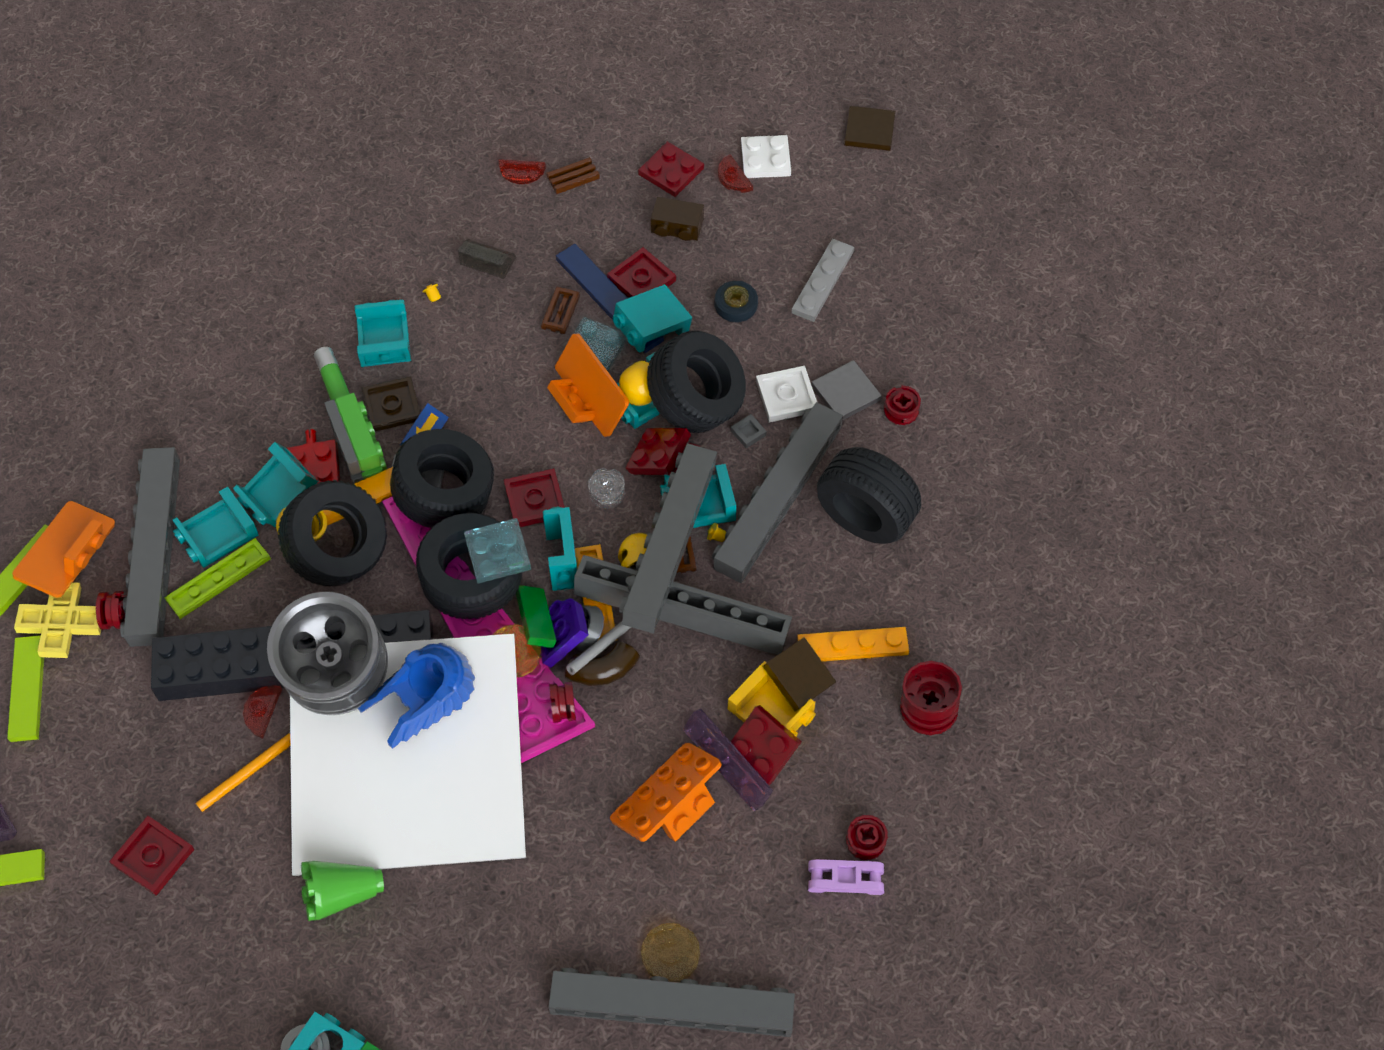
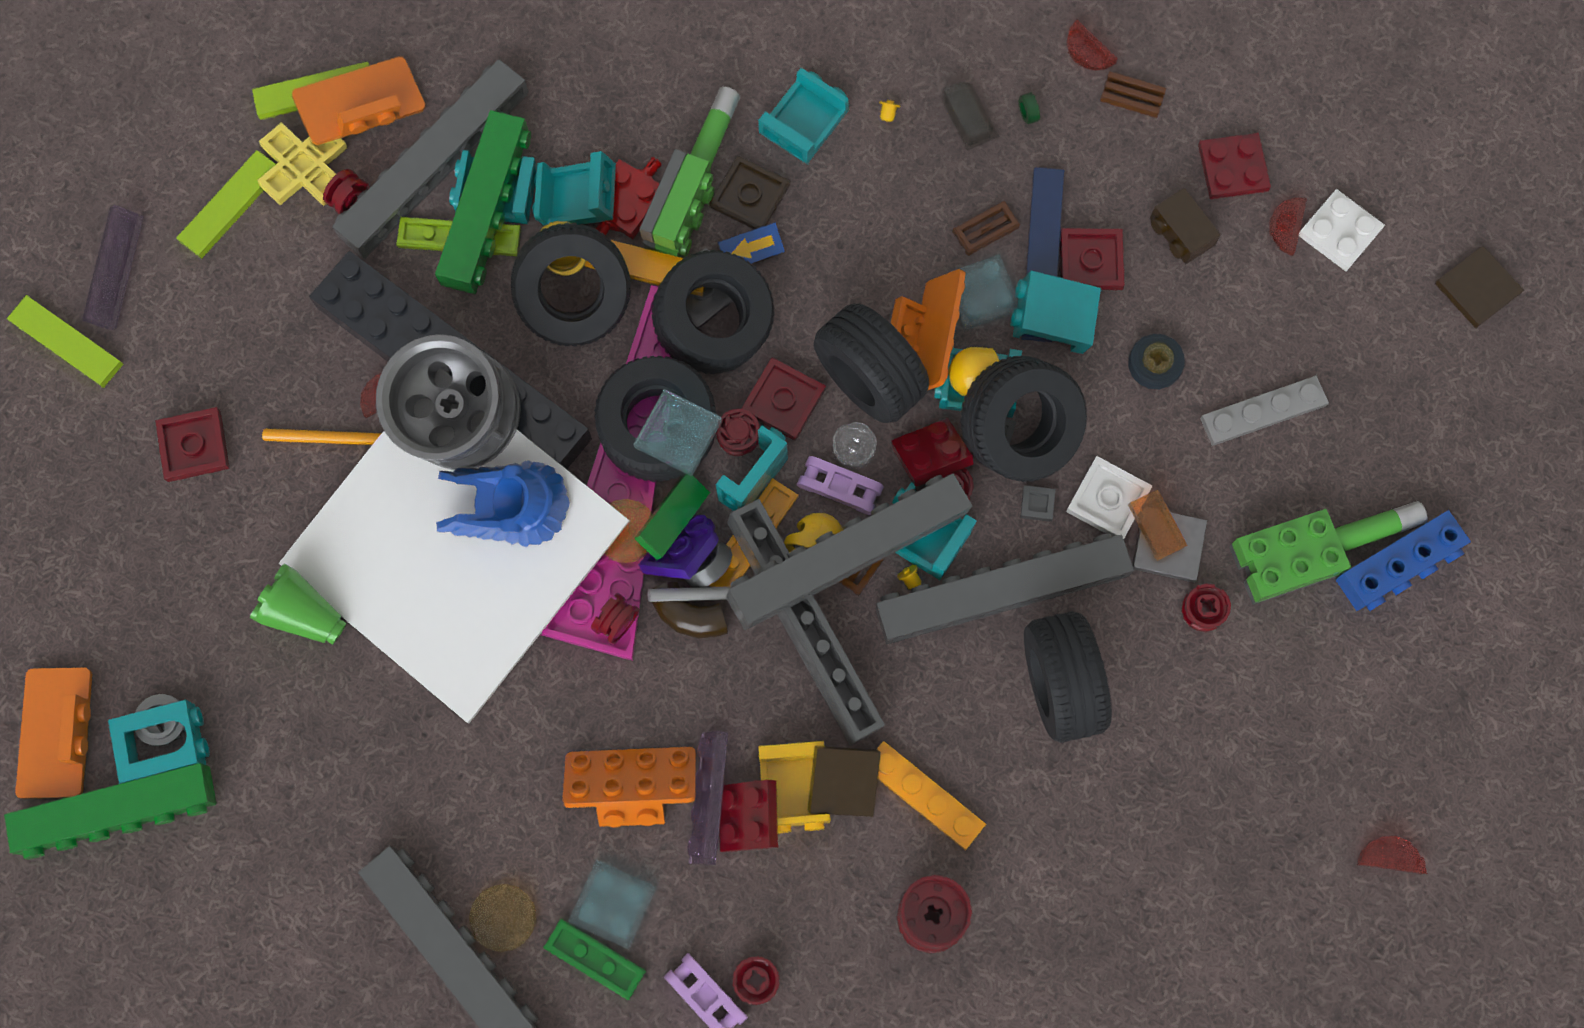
camera: 45 degrees right, 15 degrees up
(218, 540) = (483, 203): none -> green brick
(519, 226) = (1029, 108): none -> dark green tile
(532, 537) = (738, 432): none -> dark red wheel
(574, 423) = (871, 362): none -> black tyre
(620, 517) = (840, 485): none -> lavender plate
(732, 878) = (612, 904): none -> clear light blue plate
(755, 921) = (595, 959): none -> green tile
(829, 382) = (1157, 525): none -> clear orange tile
(925, 328) = (1312, 549): none -> bright green piece
(980, 292) = (1402, 561): none -> blue brick
(1137, 445) = (1392, 854): none -> clear red plate

